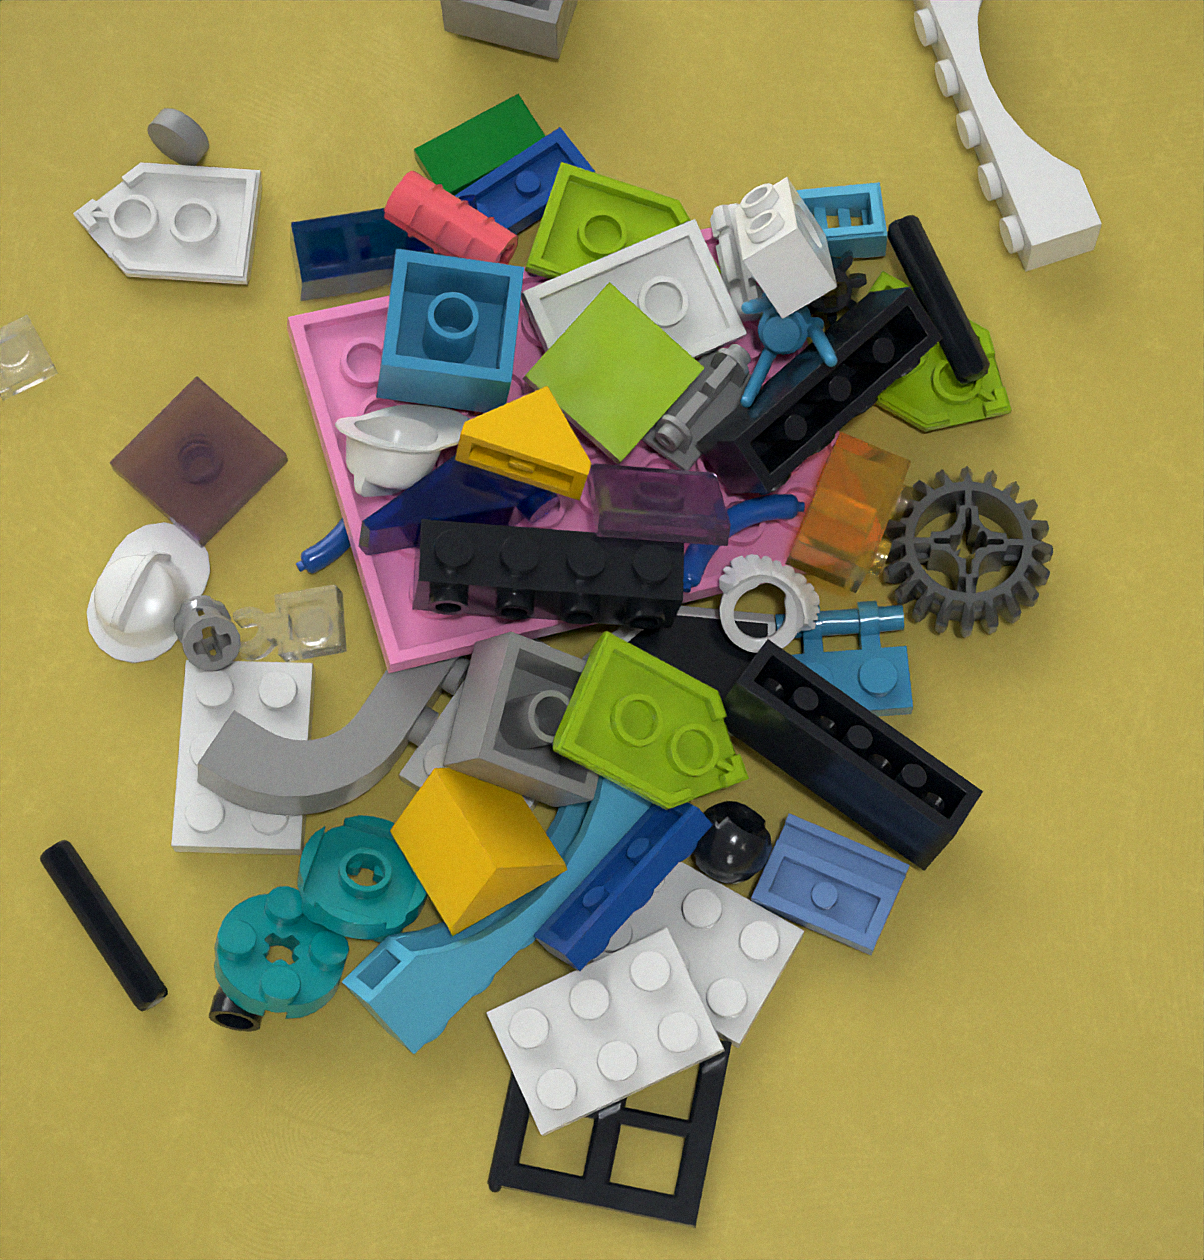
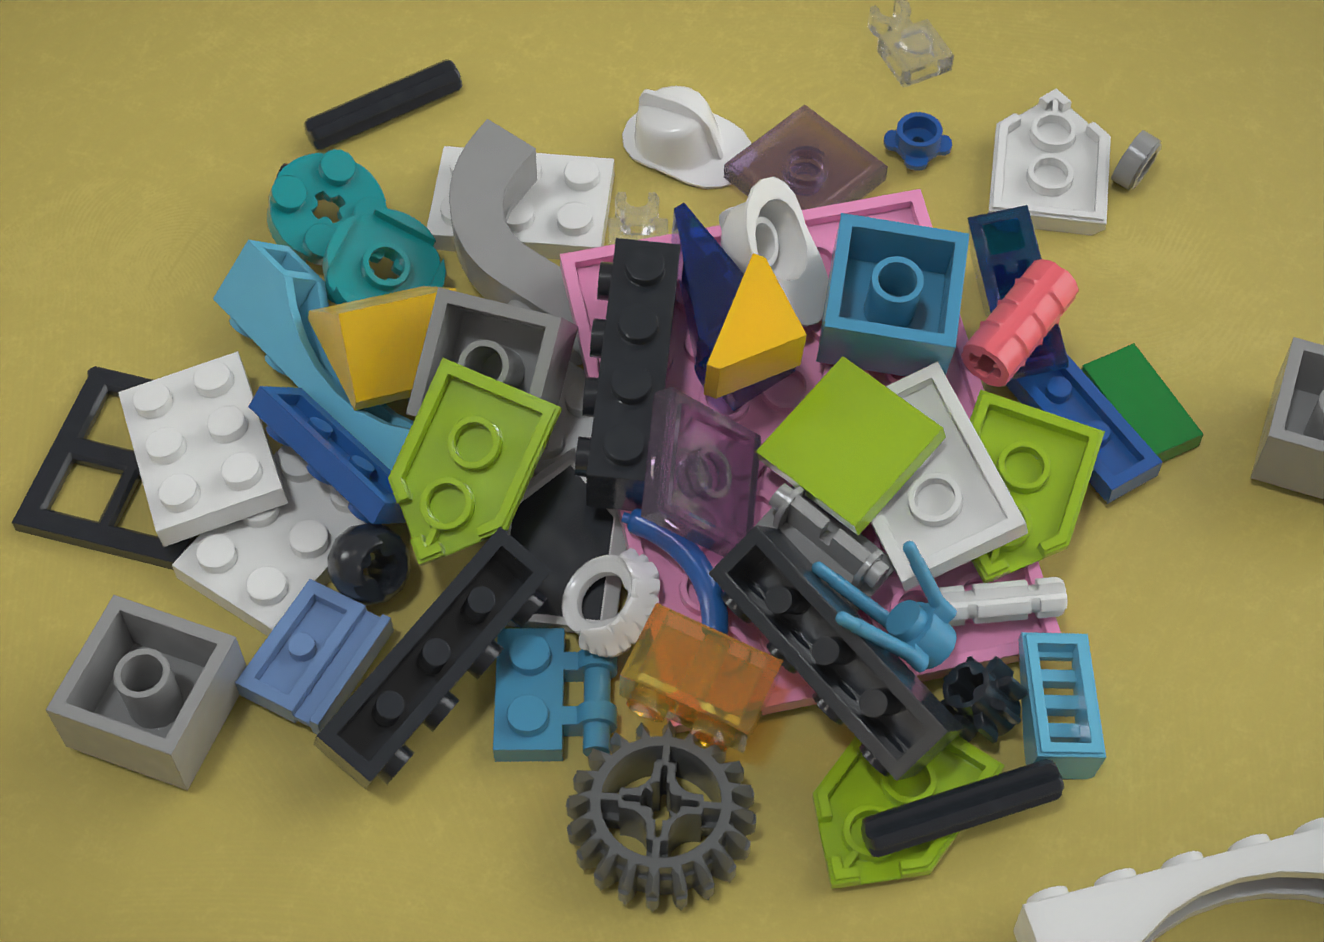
camera: 90 degrees right, 15 degrees down
(145, 335) = (918, 140): none -> blue plate
(224, 637) = (624, 160): light grey bush -> none
(784, 246) = (999, 613): white brick -> none
(898, 1023) = (148, 692): none -> light grey brick

